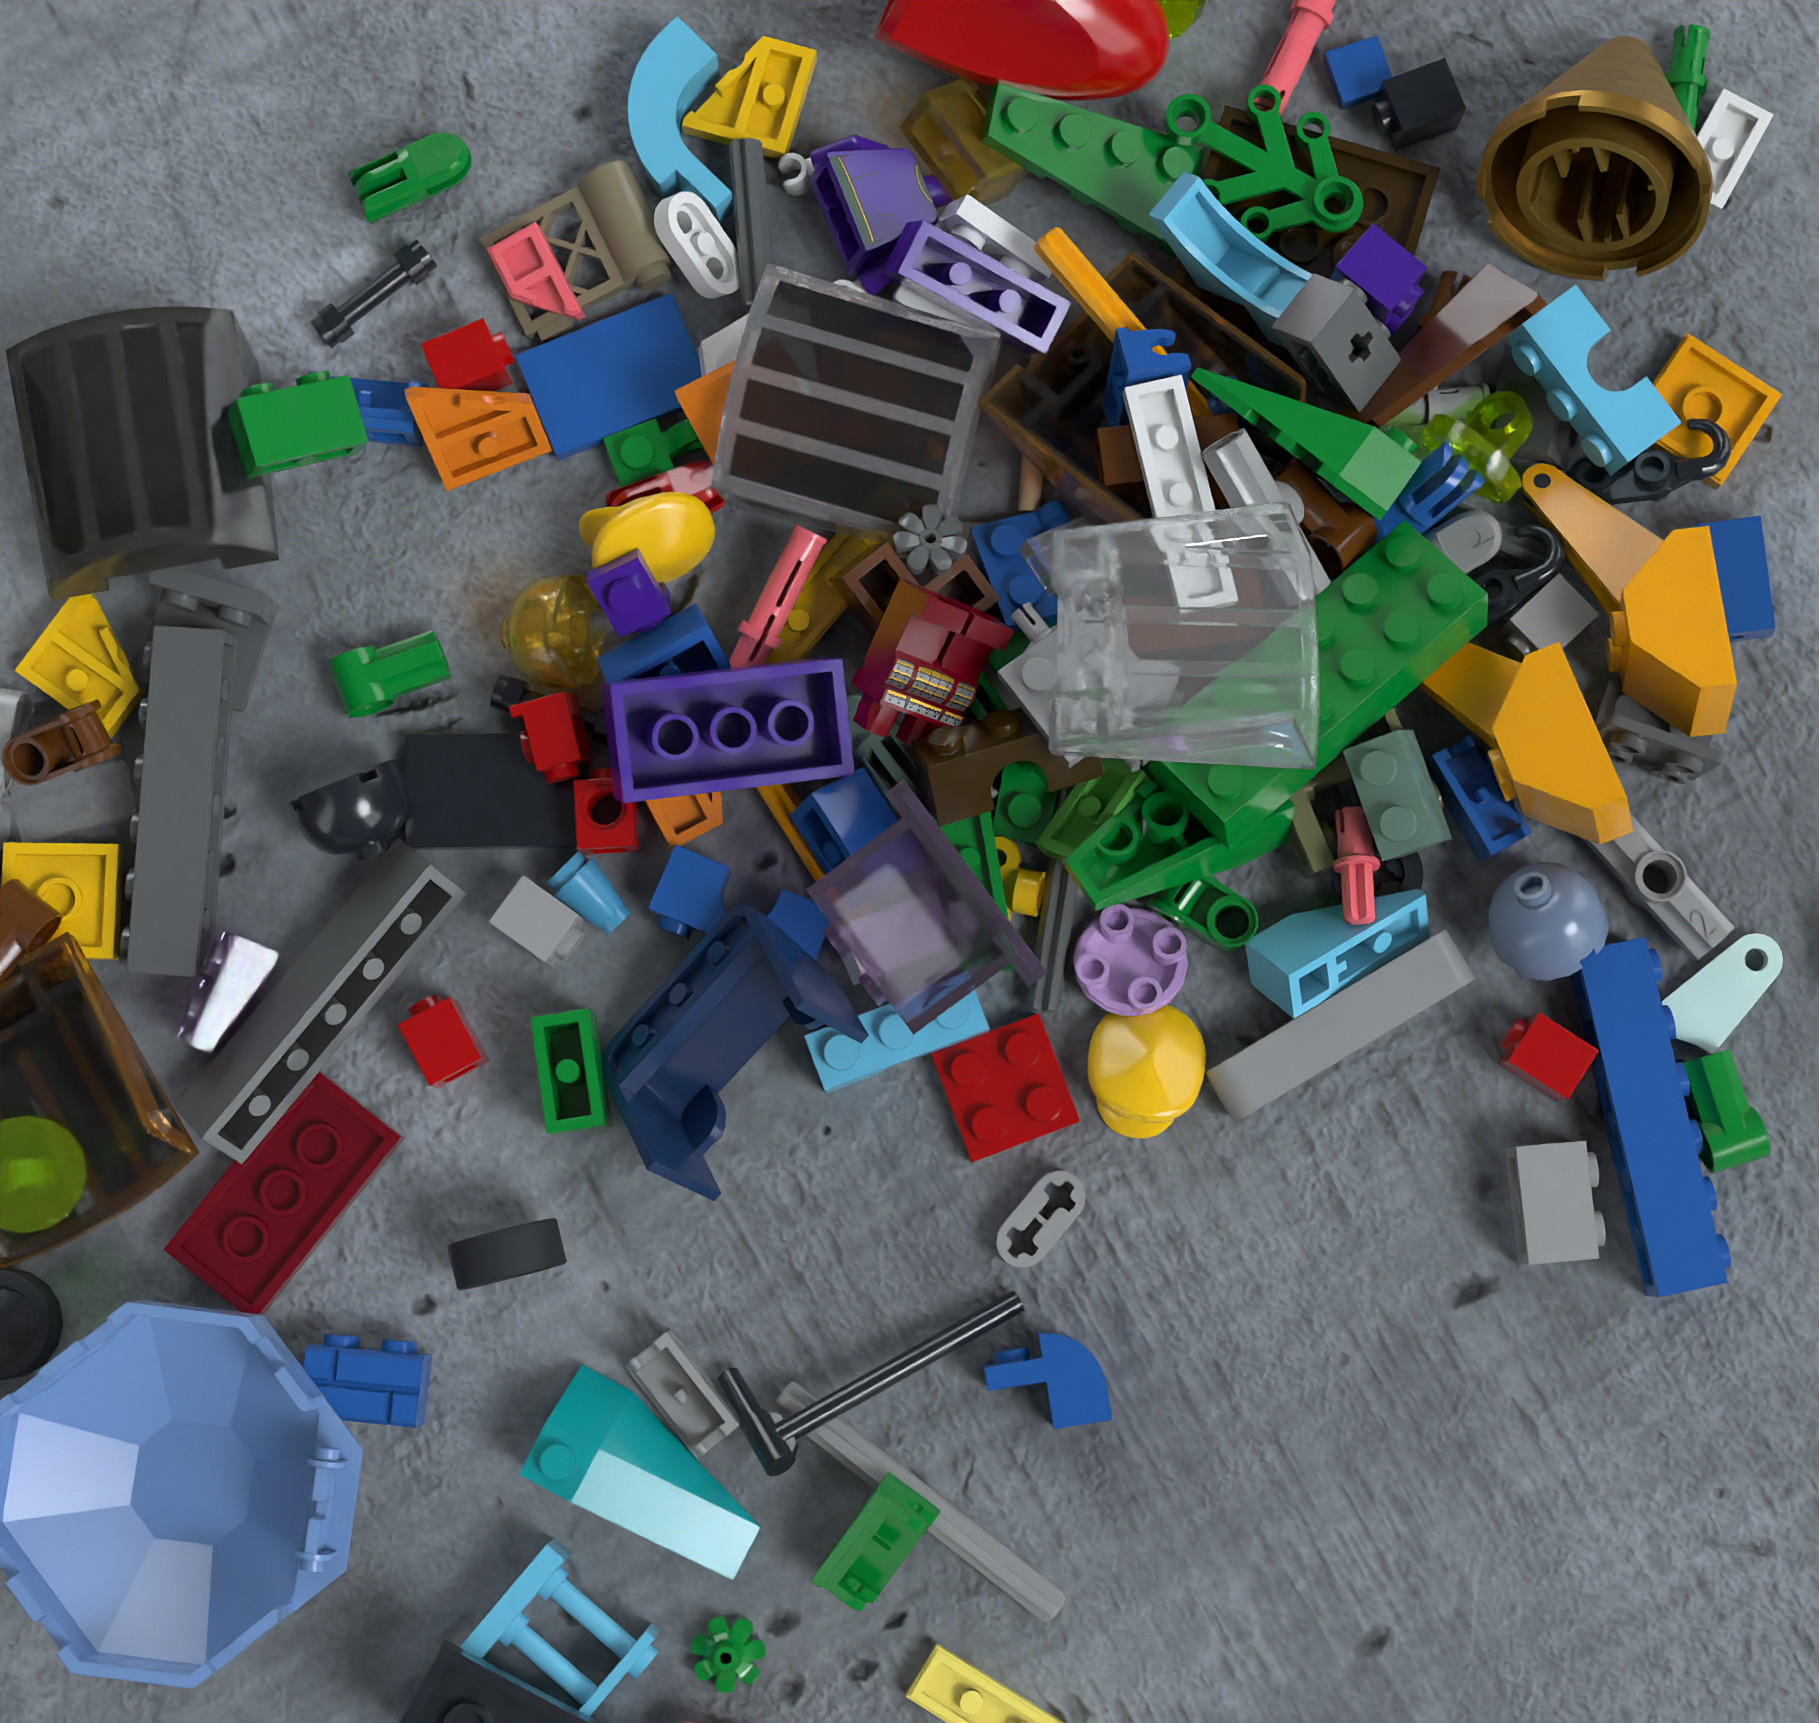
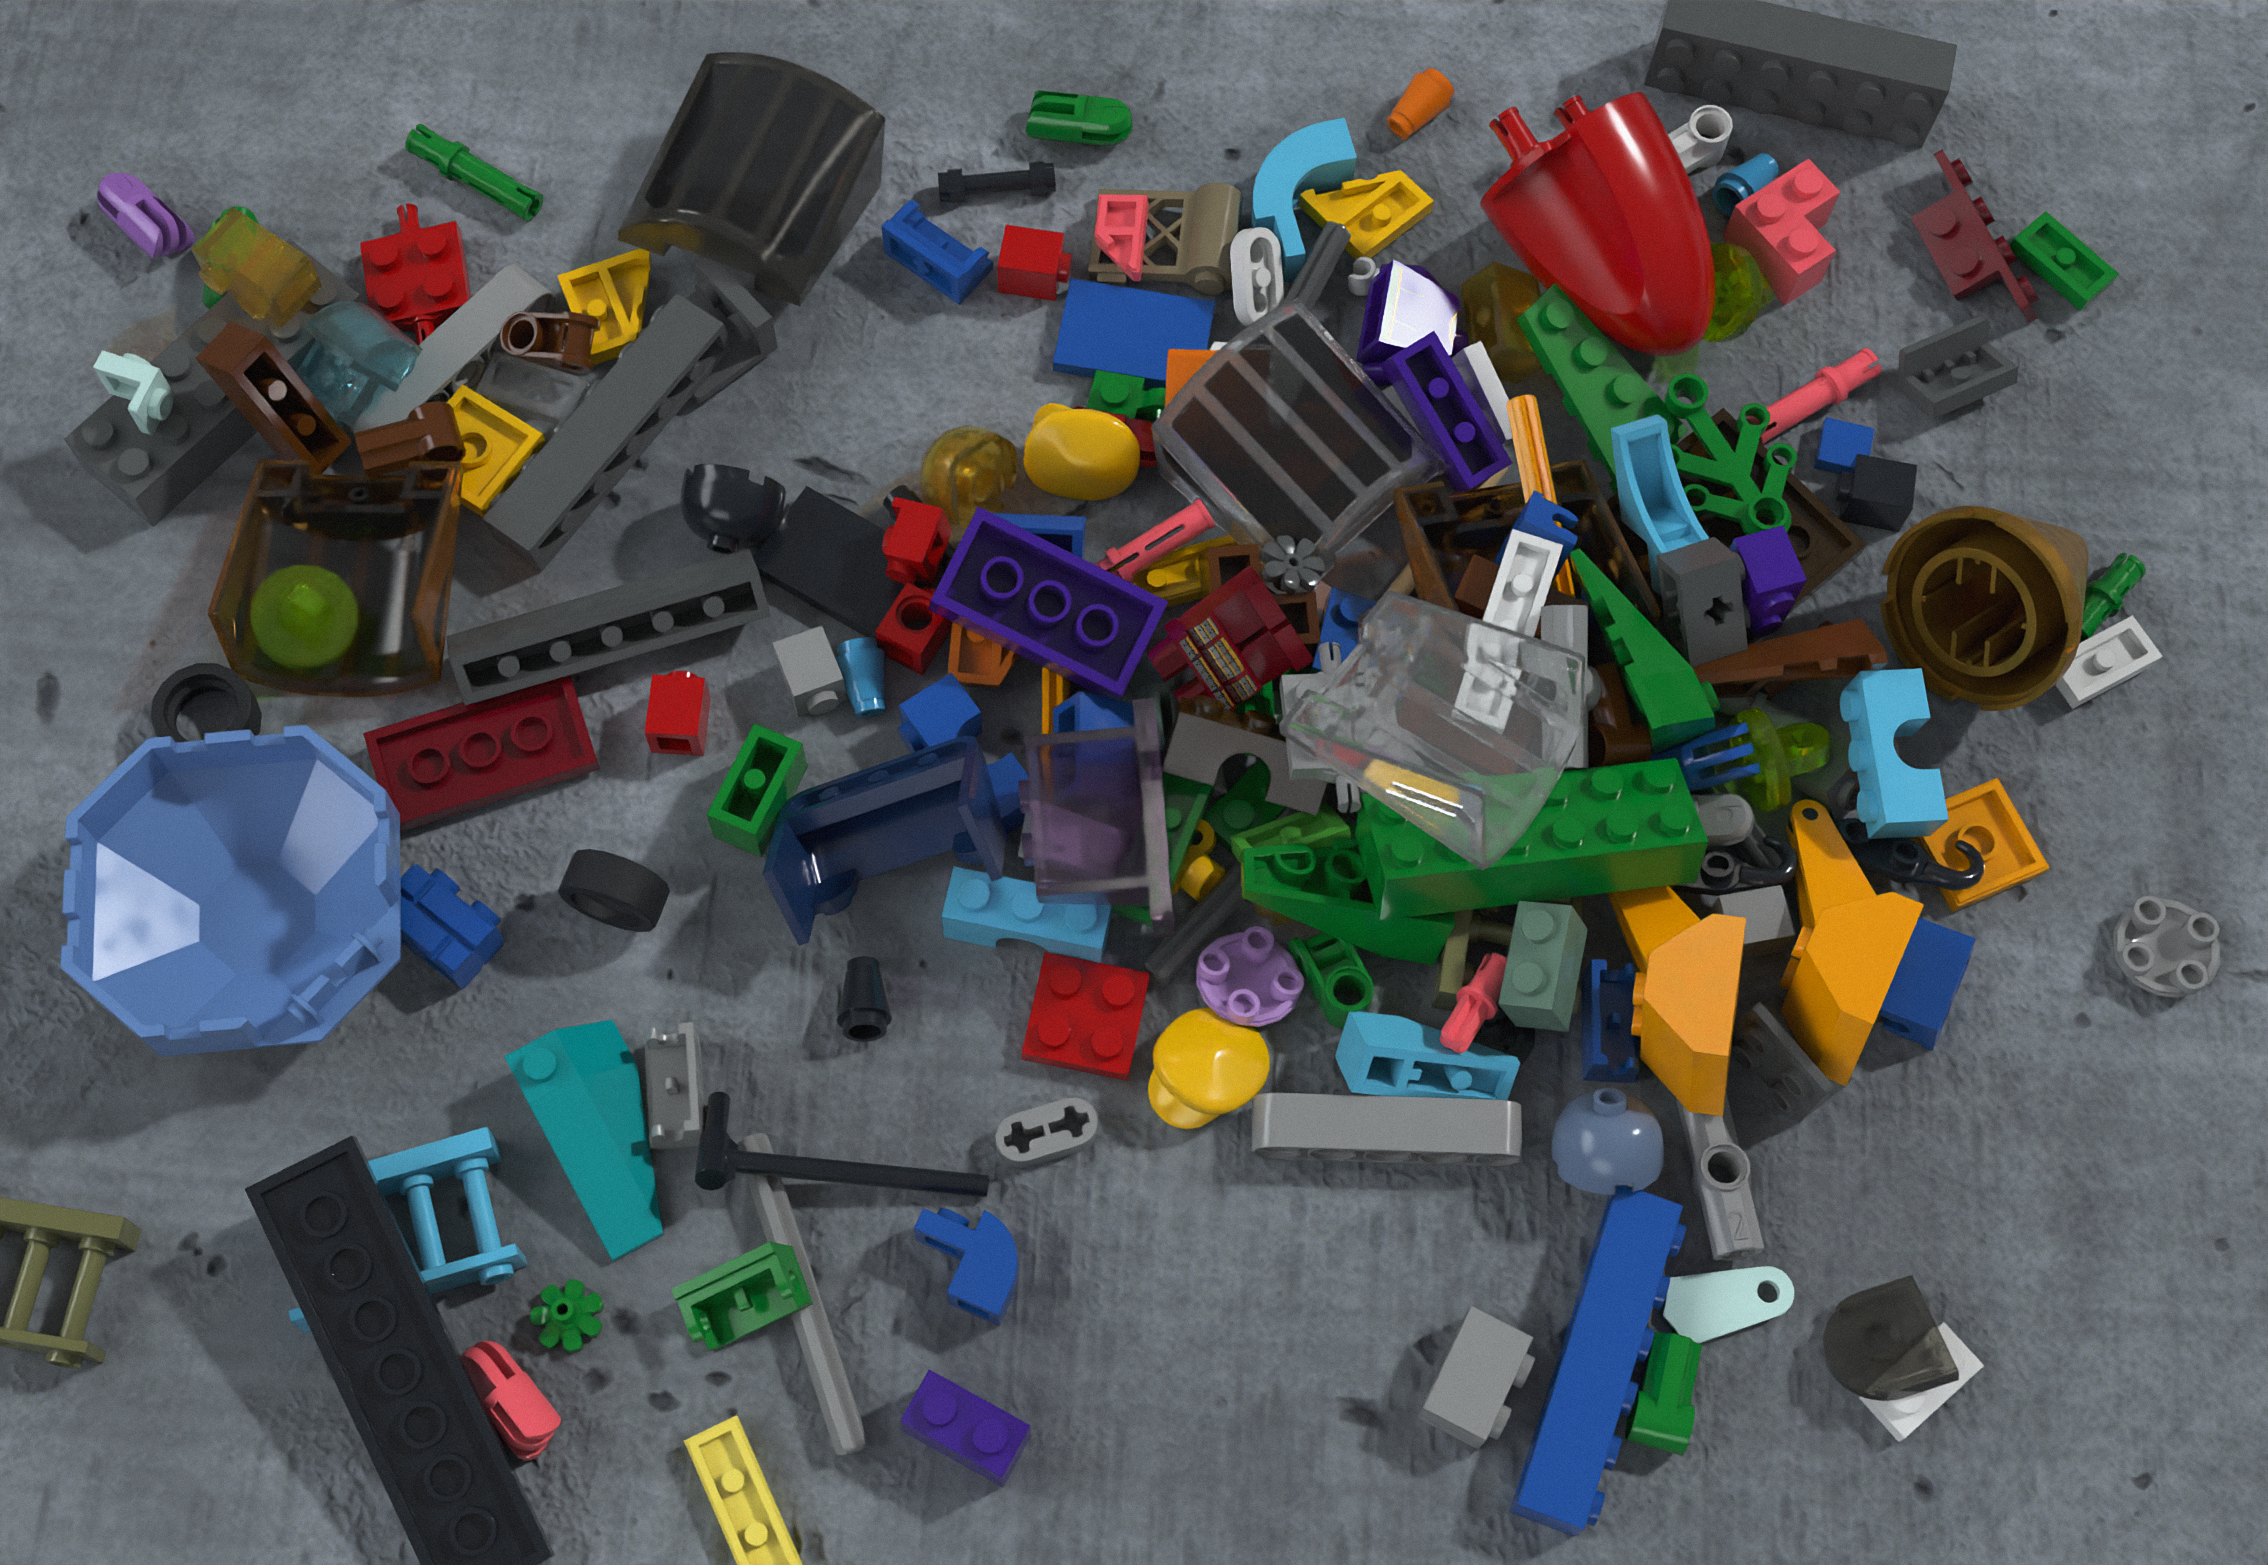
camera: 25 degrees right, 15 degrees down
(228, 994) = (554, 578): bracket -> none
(296, 424) = (876, 216): green brick -> none
(373, 677) = (811, 432): green piece -> none
(476, 431) = (1005, 308): orange wing -> none
(630, 594) = (1040, 477): dark purple bracket -> none
(798, 1204) = (863, 1002): none -> black cone
(1145, 1532) = (966, 1428): none -> dark purple brick
(1546, 1055) = (1542, 1256): red brick -> none

